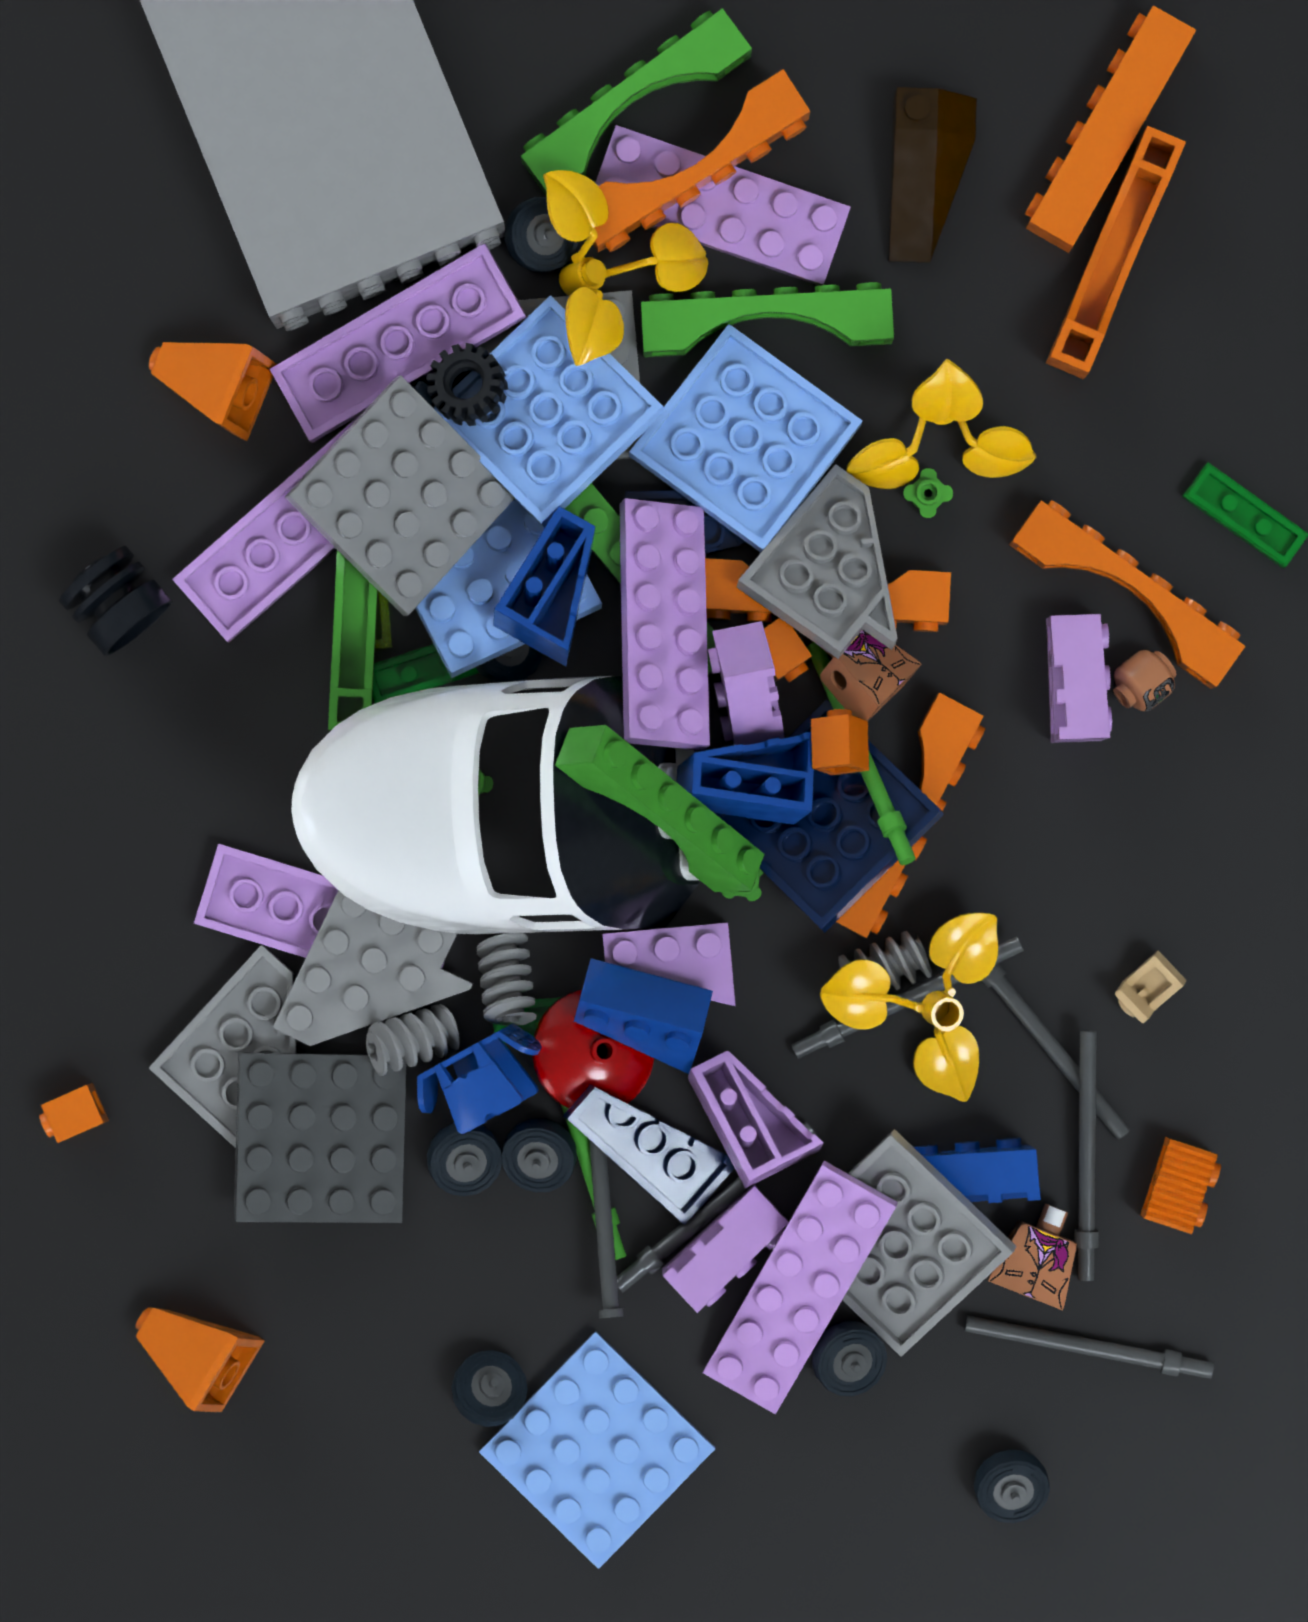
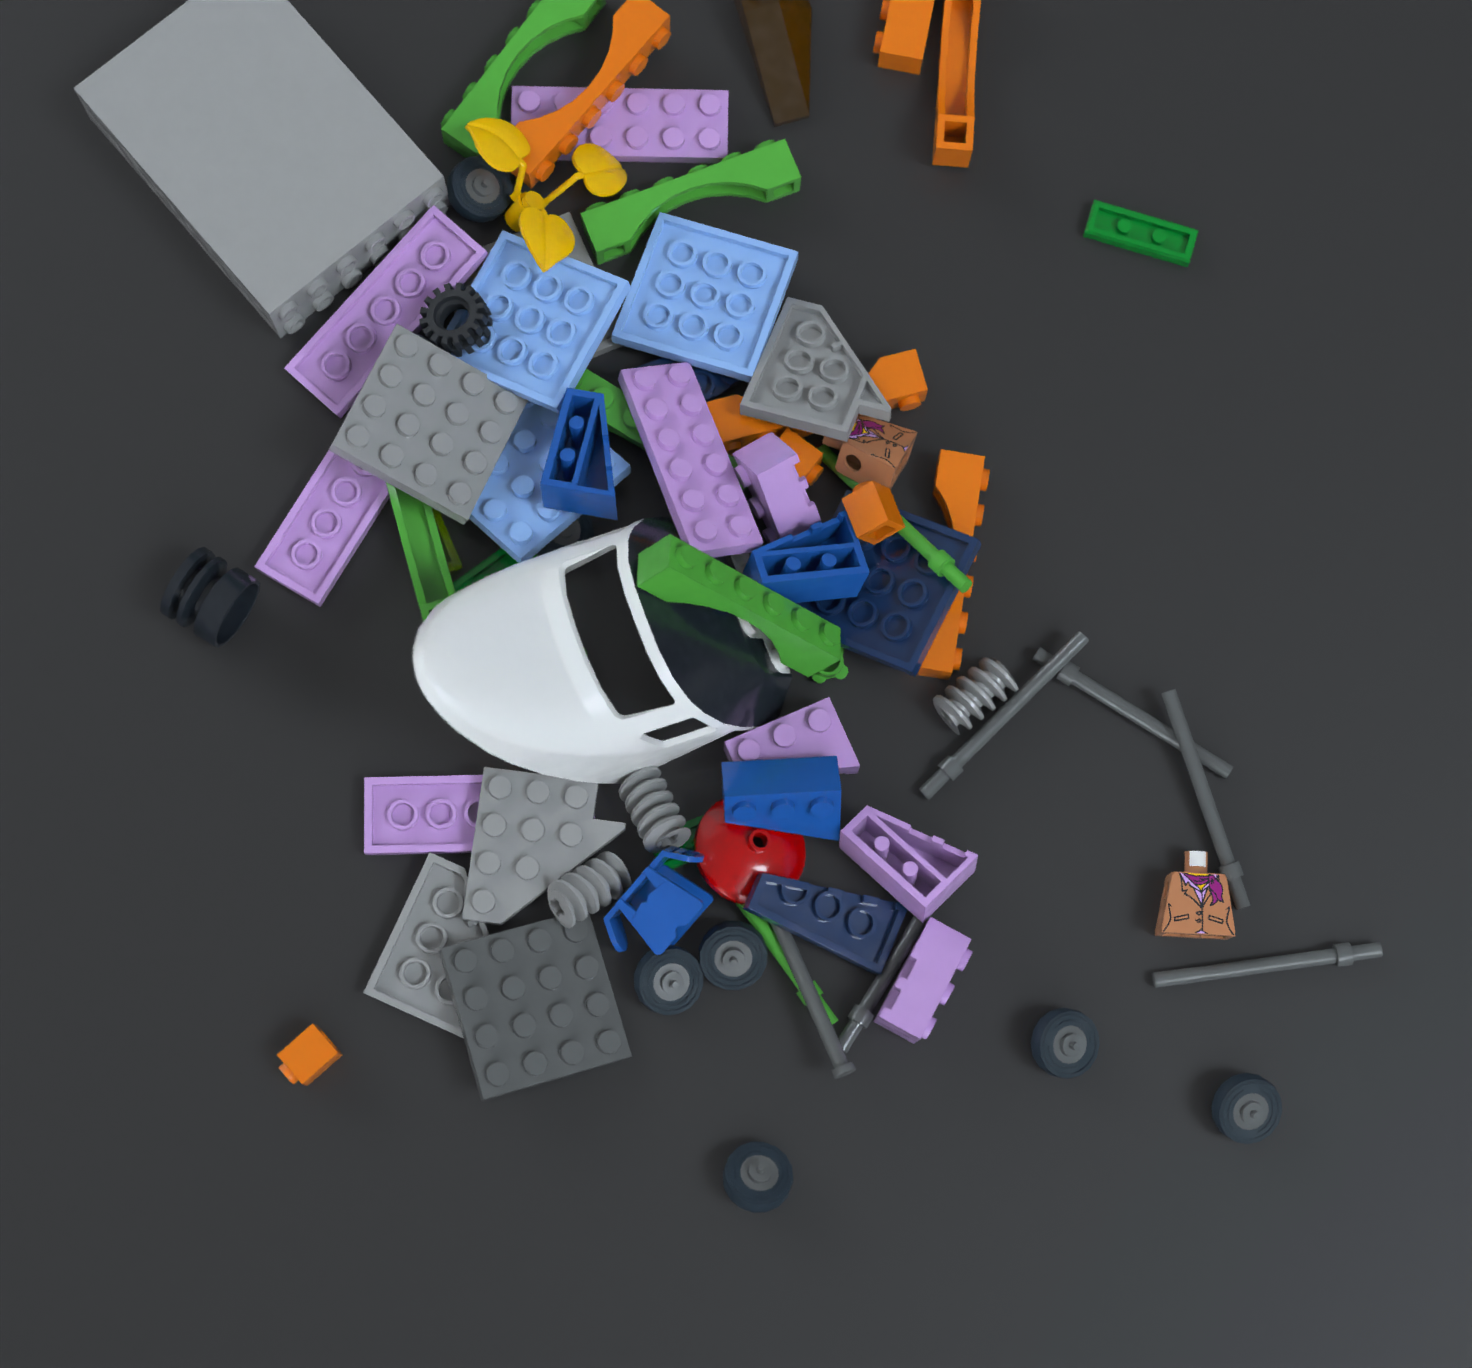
camera: 15 degrees left, 10 degrees down
(197, 1356) = (488, 1234): orange slope -> none
(217, 379) = (242, 389): orange slope -> none
(597, 1449) = (871, 1202): light blue plate -> none
(800, 1287) = (1001, 992): lavender plate -> none
(928, 505) = (870, 306): bright green plate -> none
(928, 1252) = (1072, 924): light grey plate -> none
(941, 399) = (860, 195): yellow plant -> none
(950, 1060) = (1042, 654): yellow plant -> none
(988, 1172) = (1114, 845): blue wedge -> none
(1078, 678) = (1052, 405): lavender wedge -> none
(1144, 680) = (1107, 388): nougat head -> none
(1149, 987) = (1205, 638): tan bracket -> none
(1180, 1186) = (1294, 798): orange brick -> none
(1197, 643) = (1140, 344): orange arch -> none

